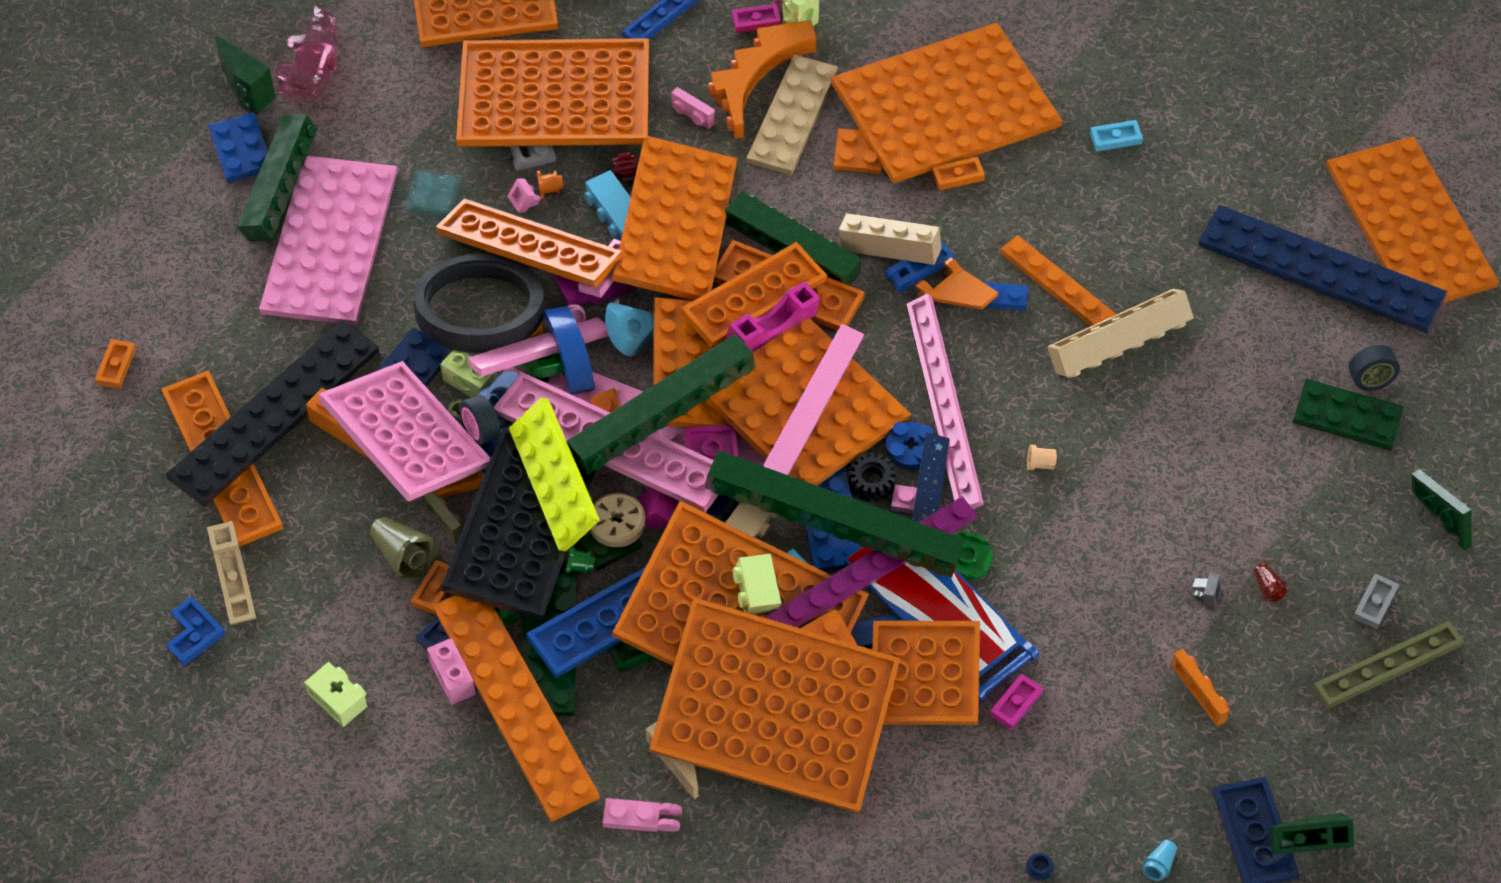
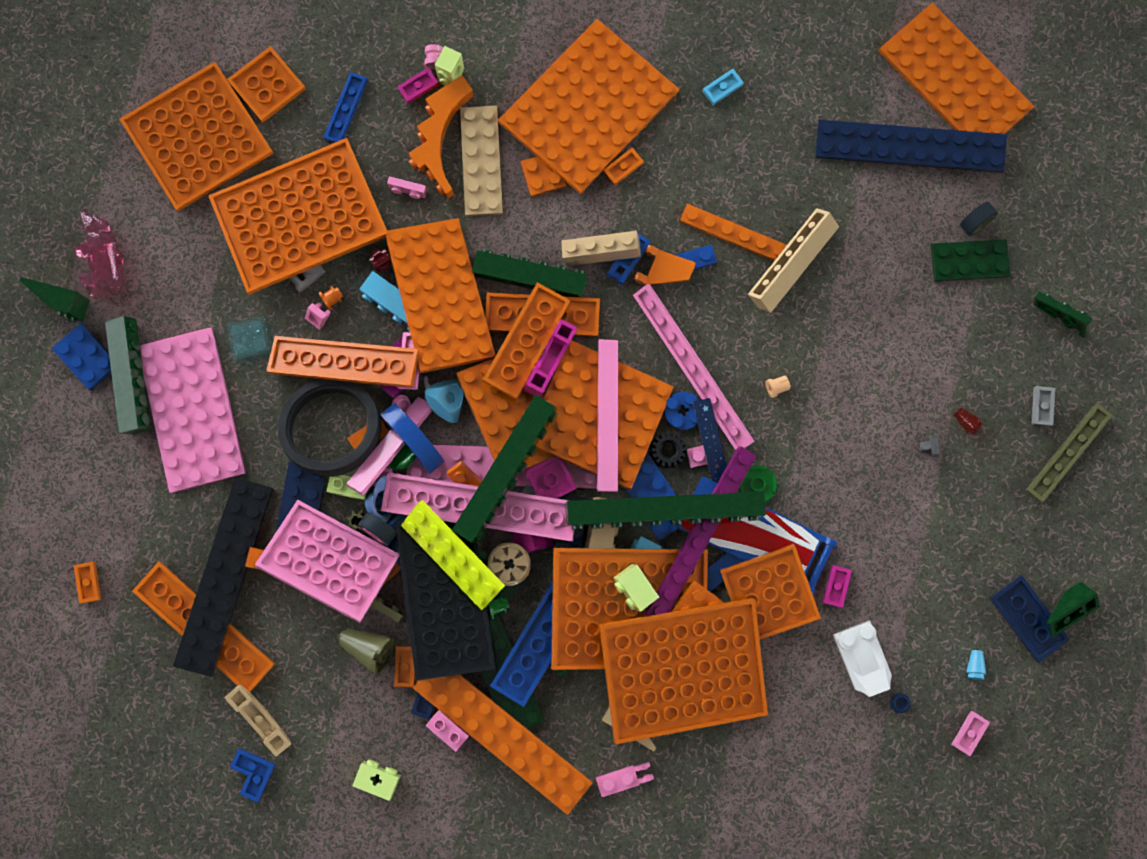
camera: 25 degrees left, 25 degrees up
(1015, 793) = (864, 658): none -> white slope
(1200, 687) = (954, 523): orange plate -> none

